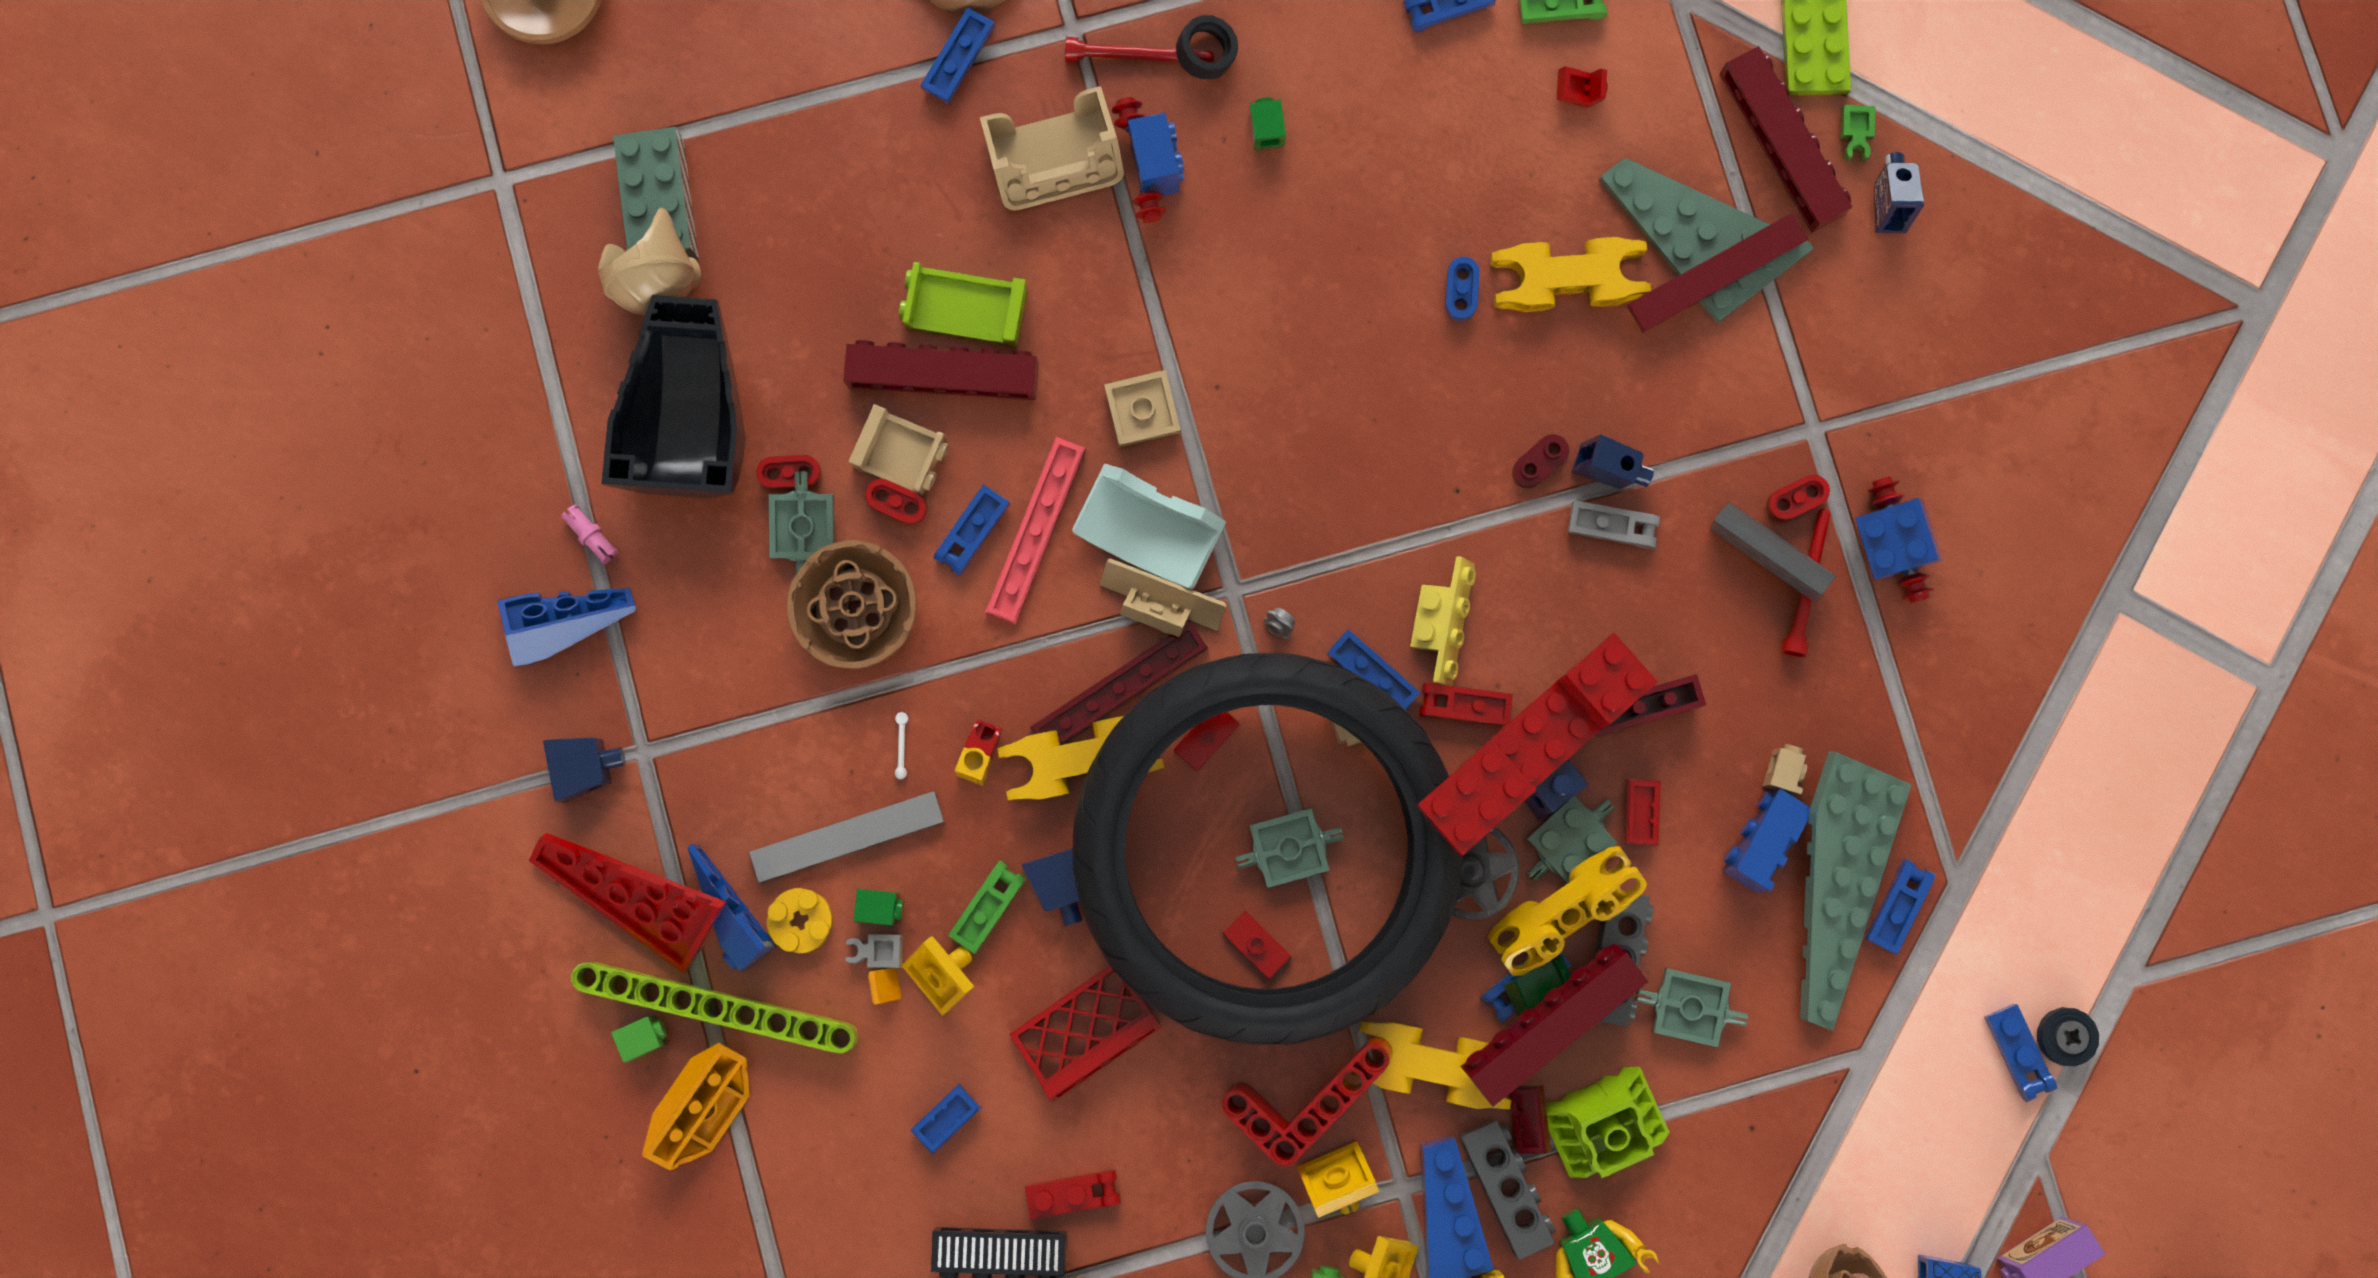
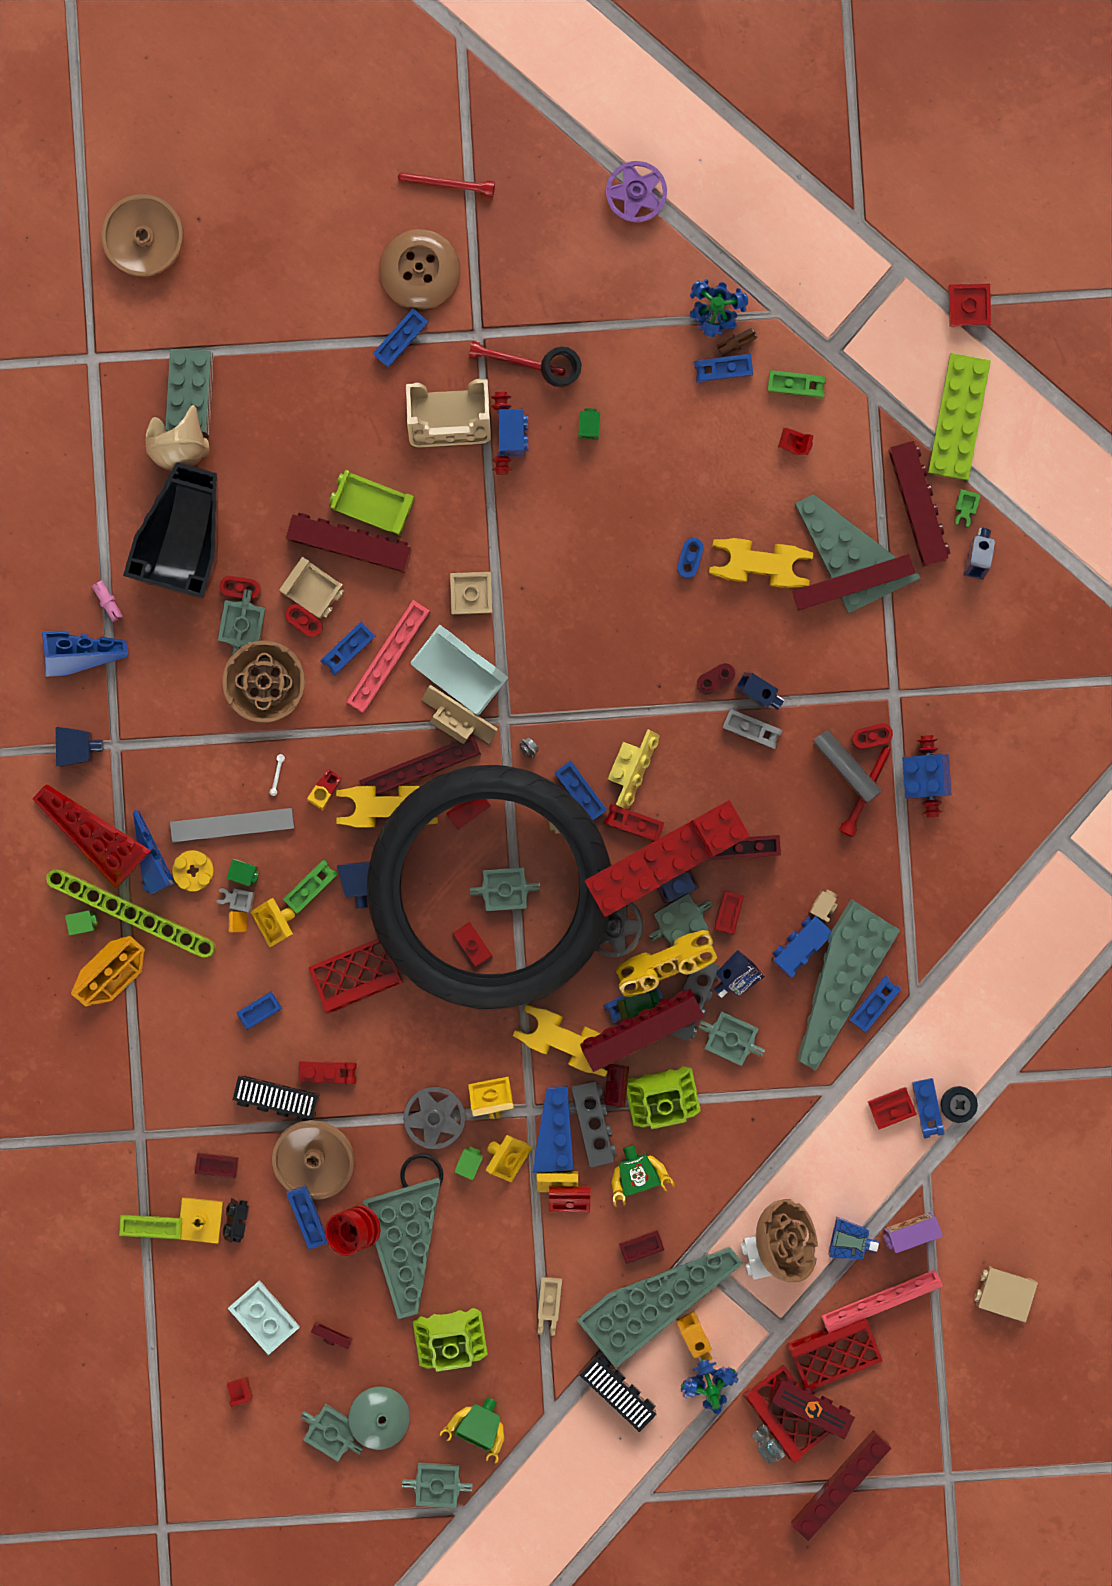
camera: 15 degrees right, 5 degrees up
(1314, 1109) = (486, 1052): red beam -> none
(1679, 906) = (737, 975): none -> dark blue torso
(1965, 1064) = (892, 1108): none -> red plate

